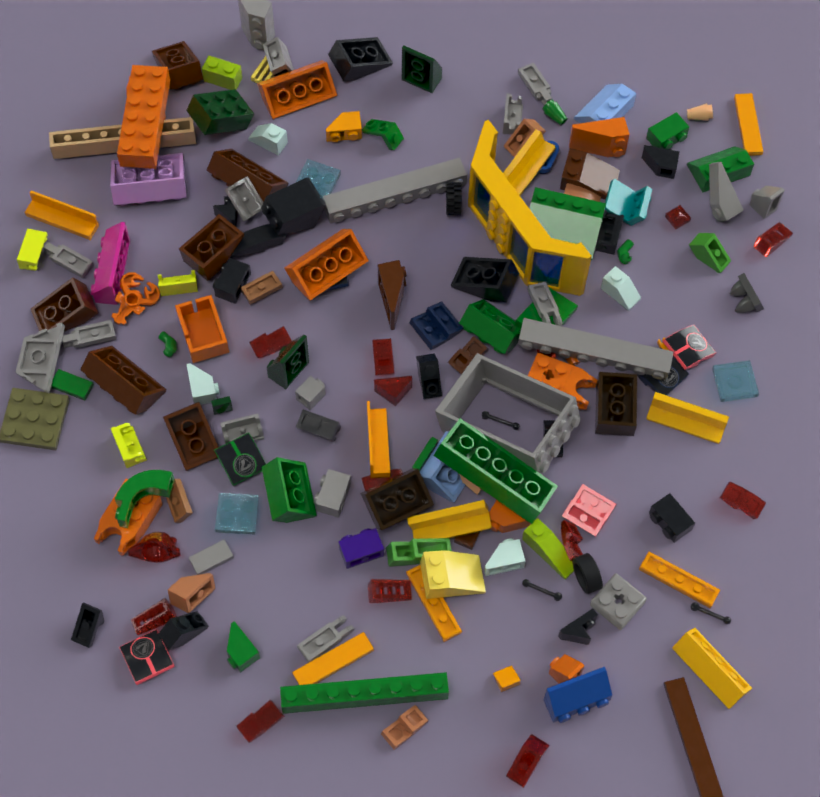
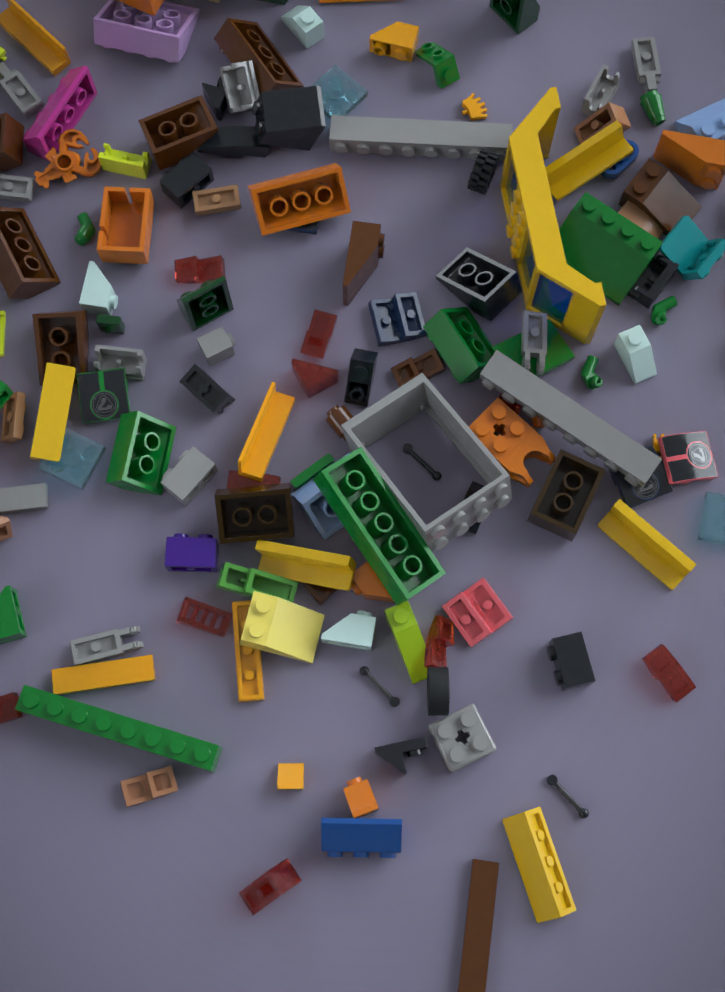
camera: 25 degrees right, 10 degrees up
(208, 484) = (52, 412): none -> yellow panel
(423, 156) = (474, 108): none -> light orange piece
(426, 412) = (336, 417): none -> reddish brown brick
(592, 315) = (588, 375): none -> green arm
(679, 579) = (548, 740): light orange tile -> none

